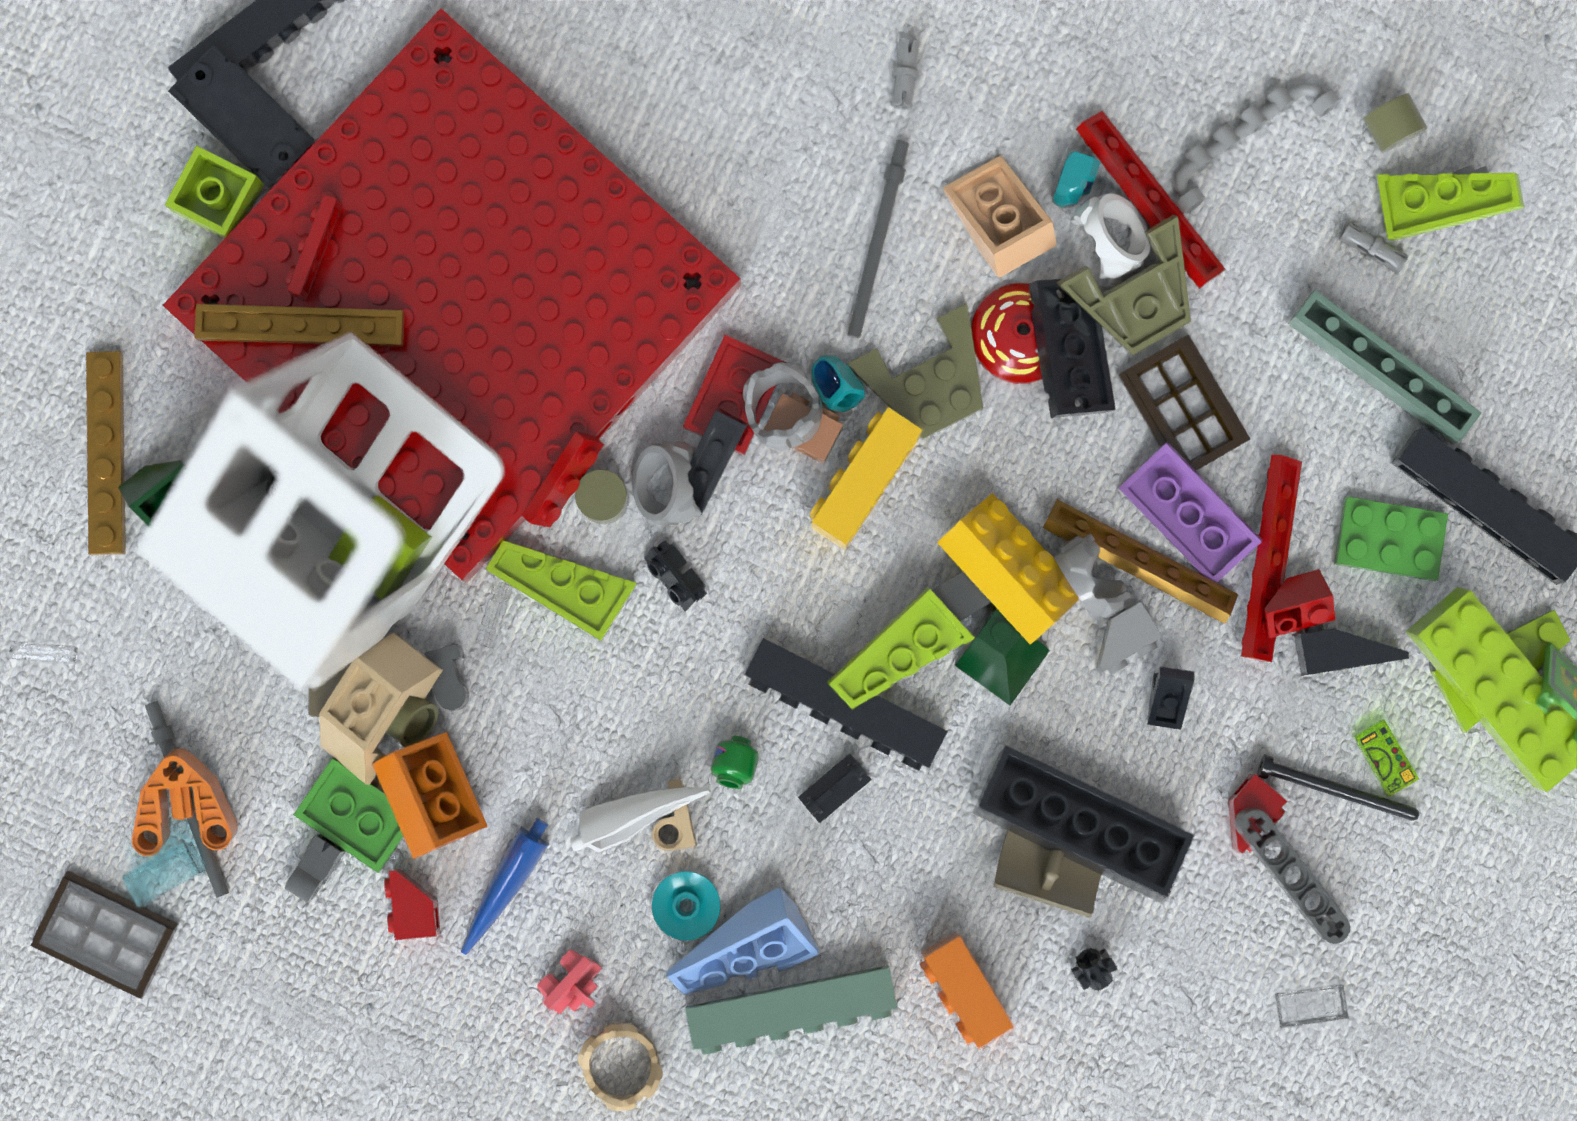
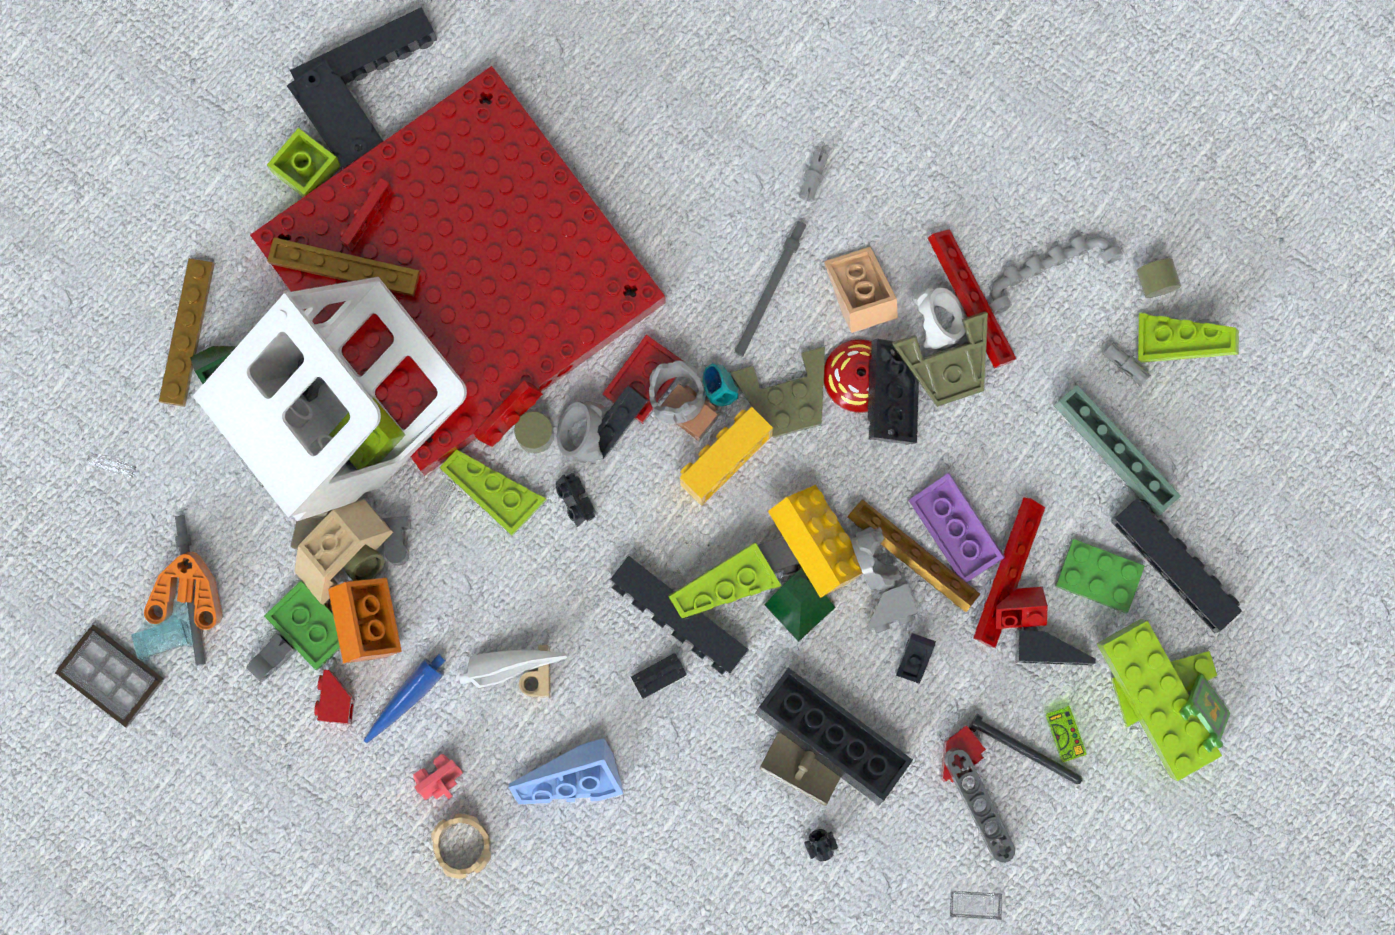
camera: 10 degrees right, 5 degrees down
(672, 918) = (522, 730): teal dish -> none
(734, 762) = (590, 642): green head -> none
(791, 1008) = (593, 828): sand green brick -> none
(965, 991) = (723, 840): orange brick -> none
(1075, 179) = (920, 273): teal rock -> none
(1184, 404) = (968, 449): dark brown piece -> none

